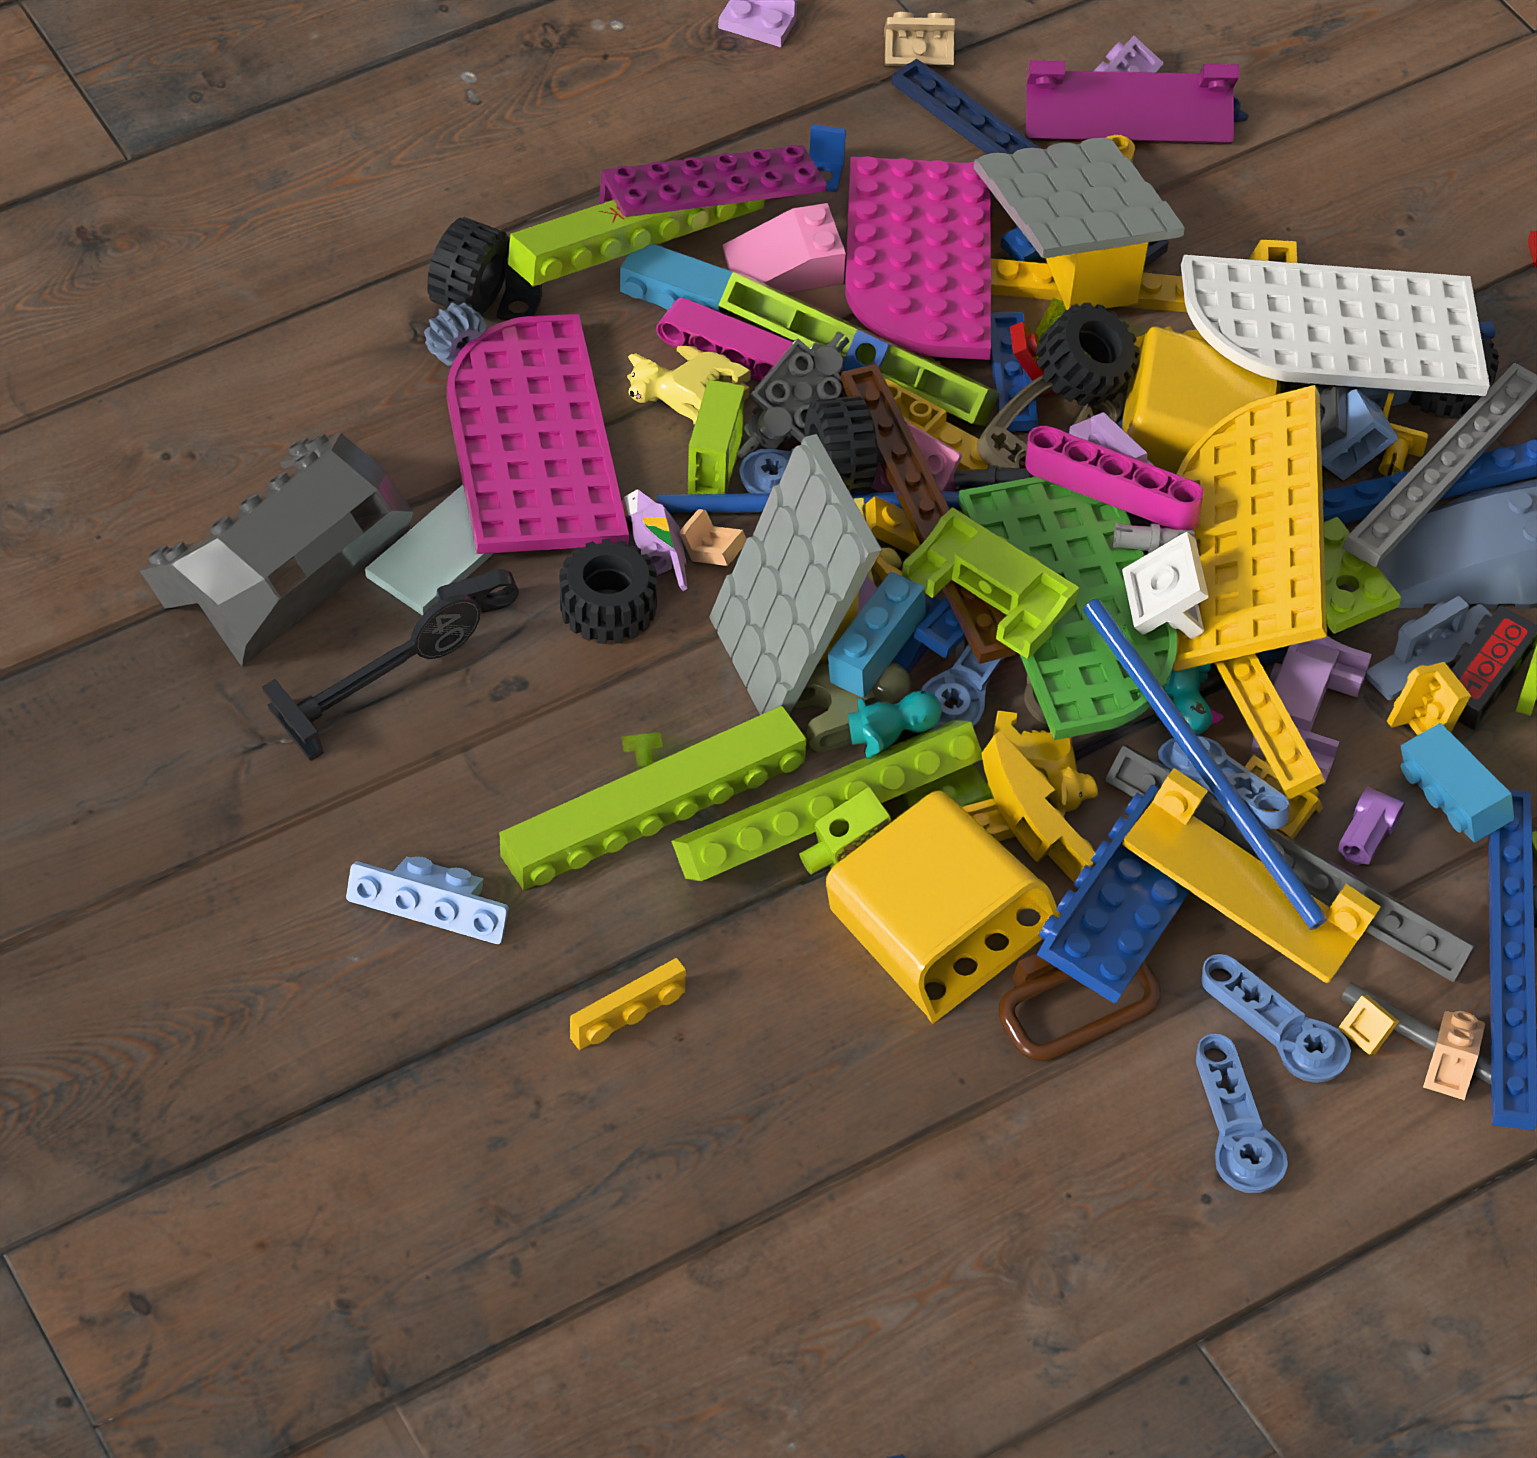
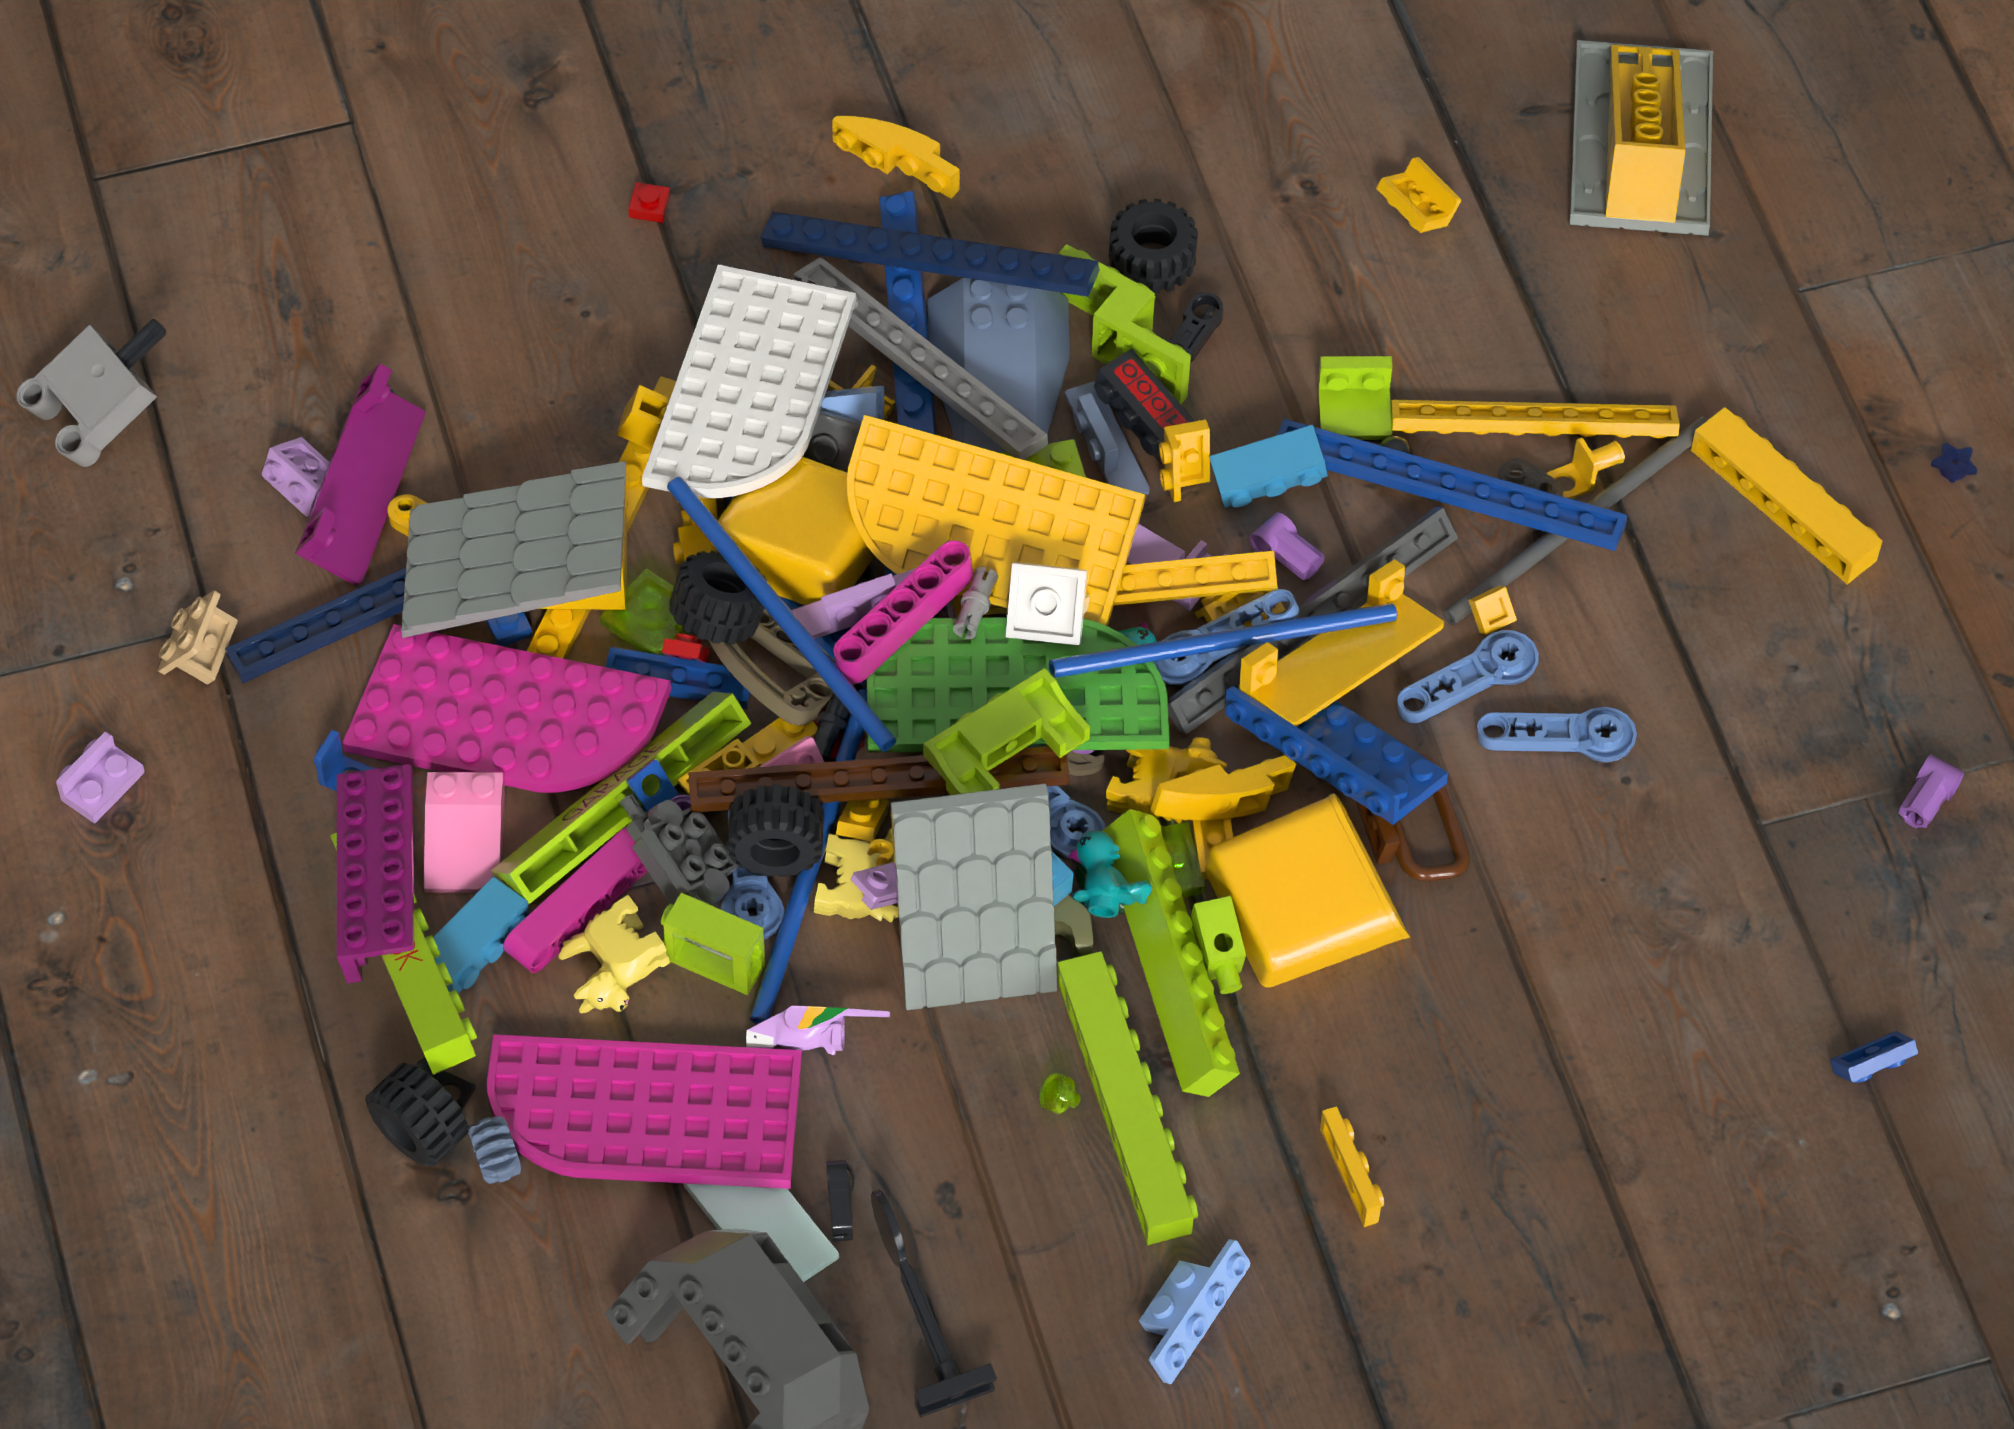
camera: 75 degrees left, 5 degrees up
(602, 568) = (872, 1108): black tyre -> none
(711, 543) = (829, 980): light nougat bracket -> none
(1074, 390) = (782, 614): none -> blue piece
(1455, 1054) = (1539, 551): light nougat bracket -> none

